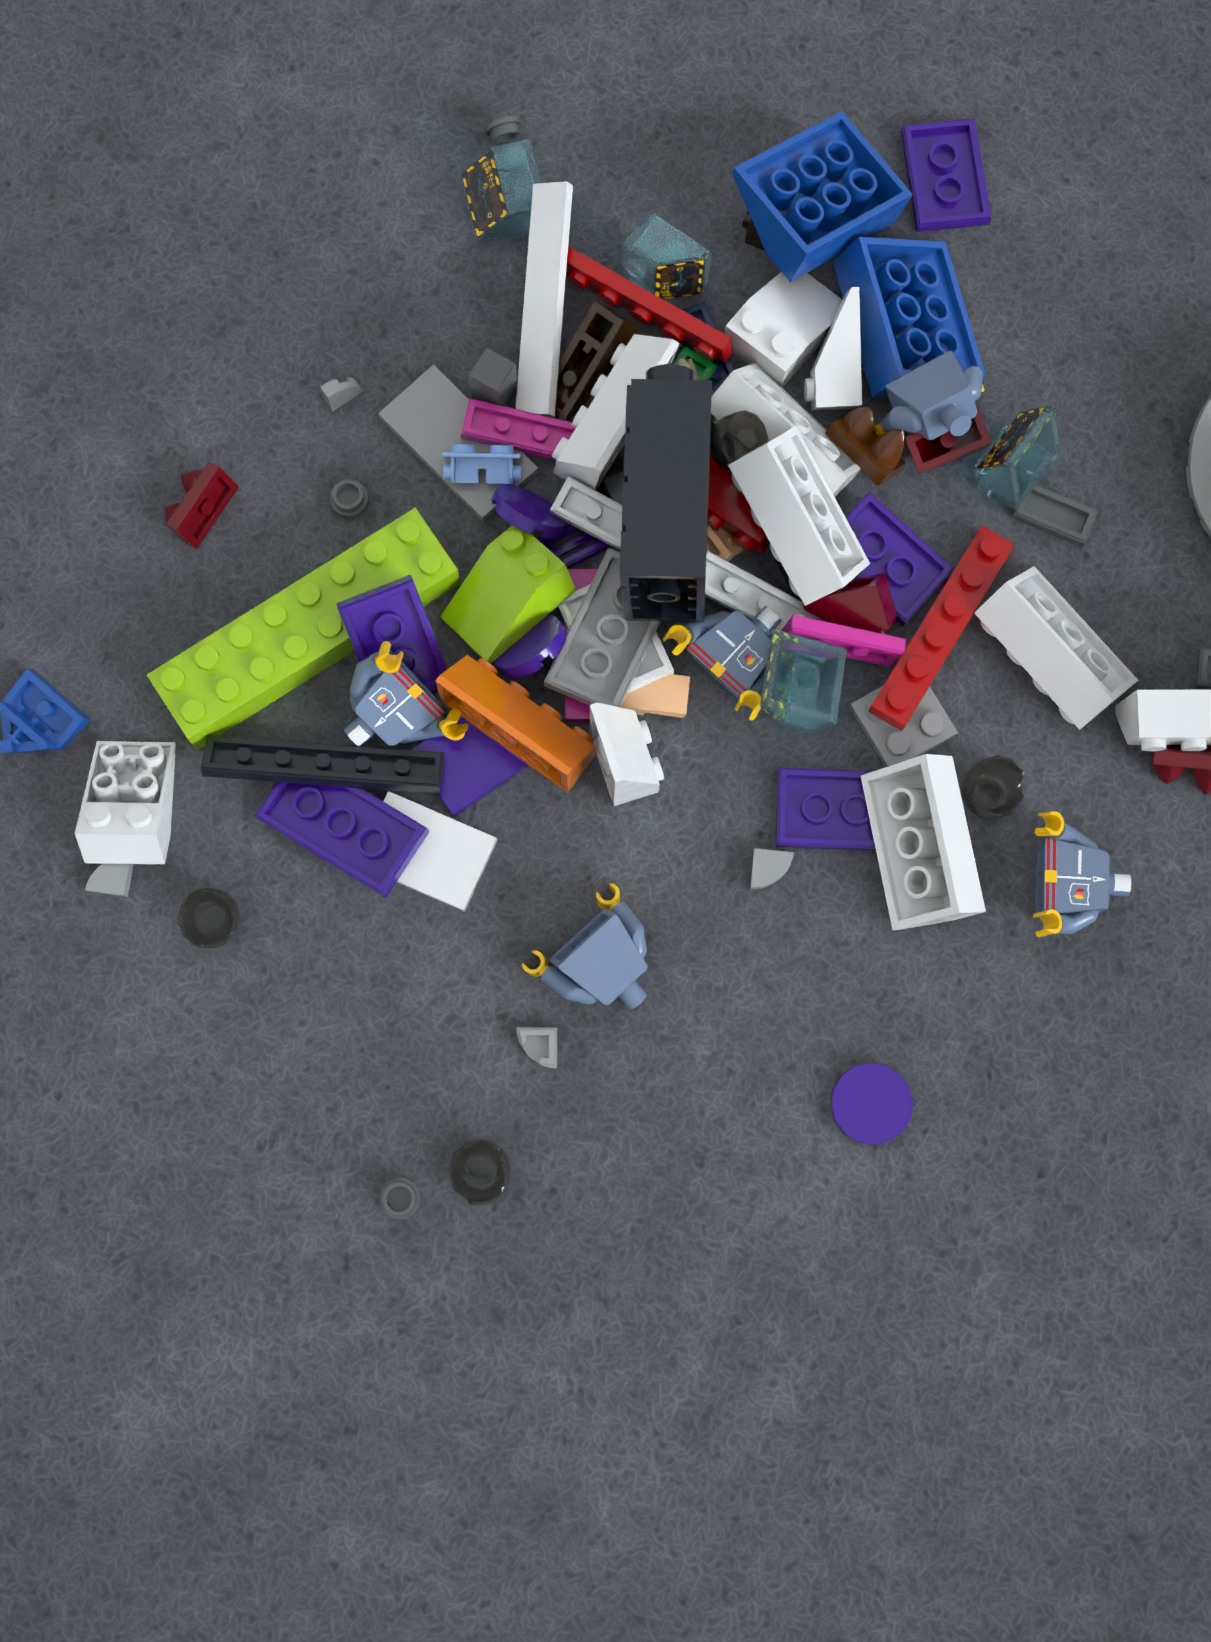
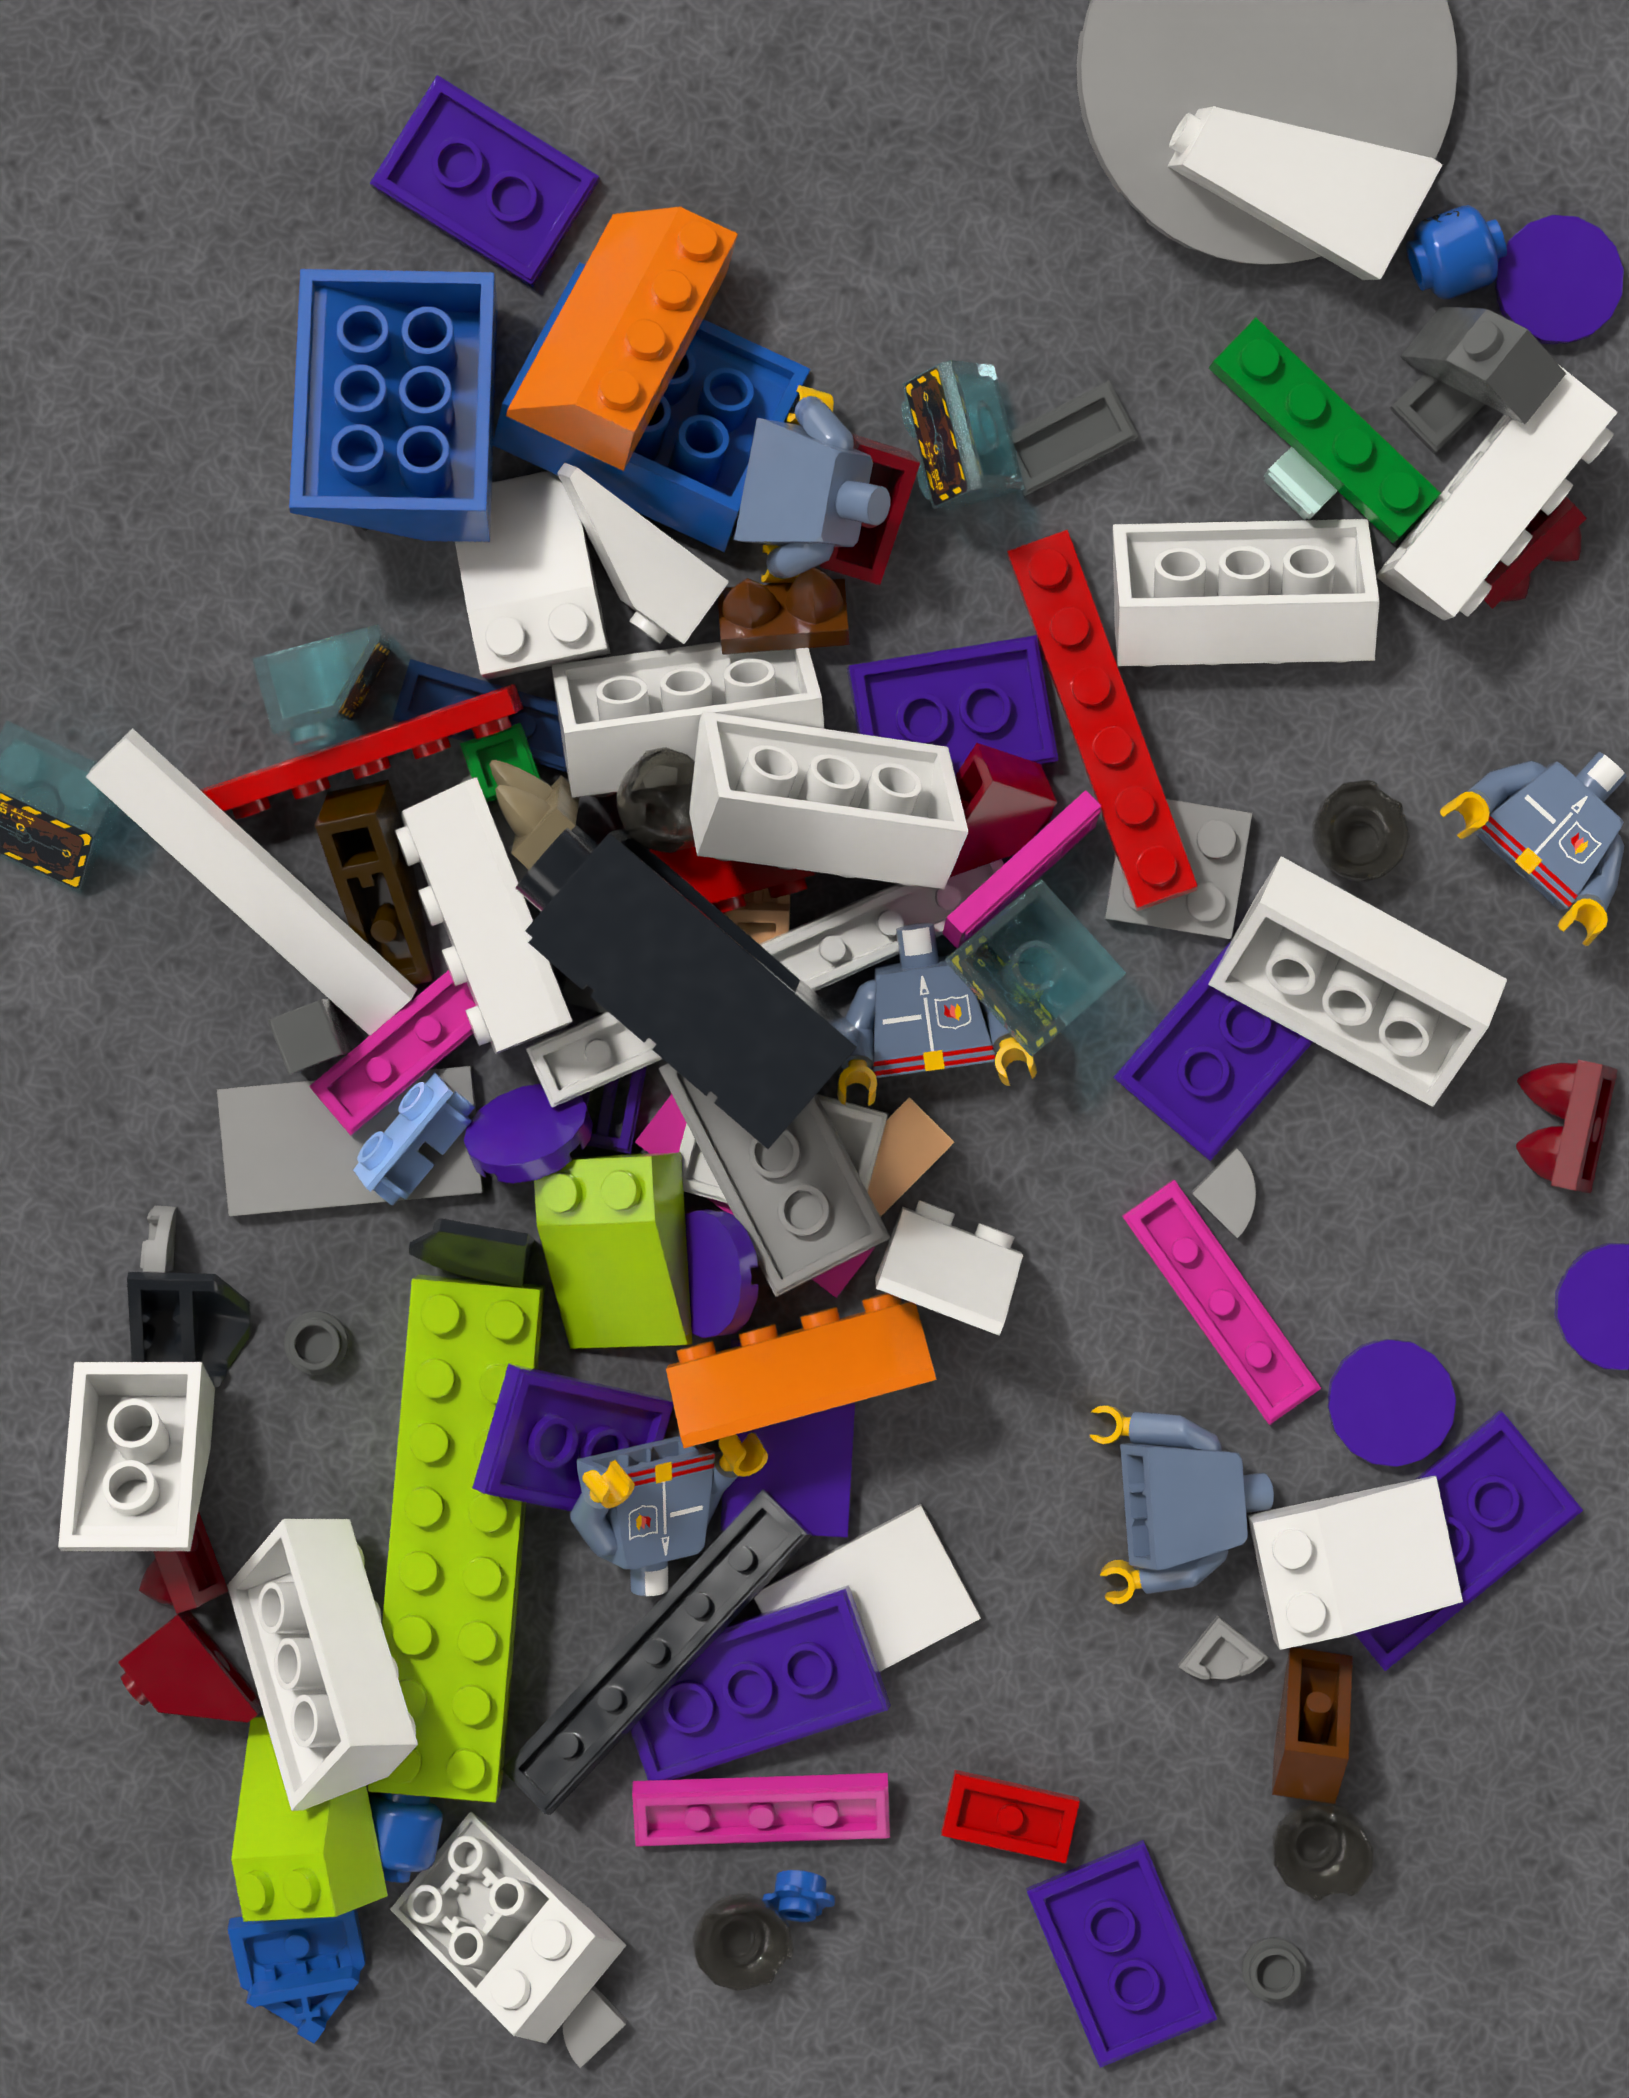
camera: 45 degrees left, 10 degrees up
(108, 659) = (300, 1860): none -> lime slope
(137, 712) = (405, 1833): none -> blue head
(142, 554) = (188, 1674): none -> dark red slope
(195, 603) = (321, 1661): none -> white slope
(230, 443) = (135, 1455): none -> white slope
(255, 929) = (800, 1895): none -> blue plate
(284, 878) = (761, 1809): none -> dark pink tile
(308, 431) = (187, 1320): none -> black slope
(348, 1115) = (1121, 1953): none -> dark purple tile
(375, 1002) = (1010, 1816): none -> red plate
(455, 526) = (476, 1251): none -> slope
(539, 1116) = (1313, 1726): none -> reddish brown slope
(640, 1068) = (1354, 1561): none -> white slope
(684, 1109) = (1497, 1512): none -> dark purple tile
(712, 906) = (1221, 1302): none -> dark pink tile
(732, 1028) = (1391, 1402): none -> dark purple tile
(937, 274) = (624, 331): none -> orange slope
(956, 1002) = (1583, 1098): none -> dark red tile
(1127, 633) = (1299, 484): none -> light aqua slope
(1162, 620) = (1324, 430): none -> green plate

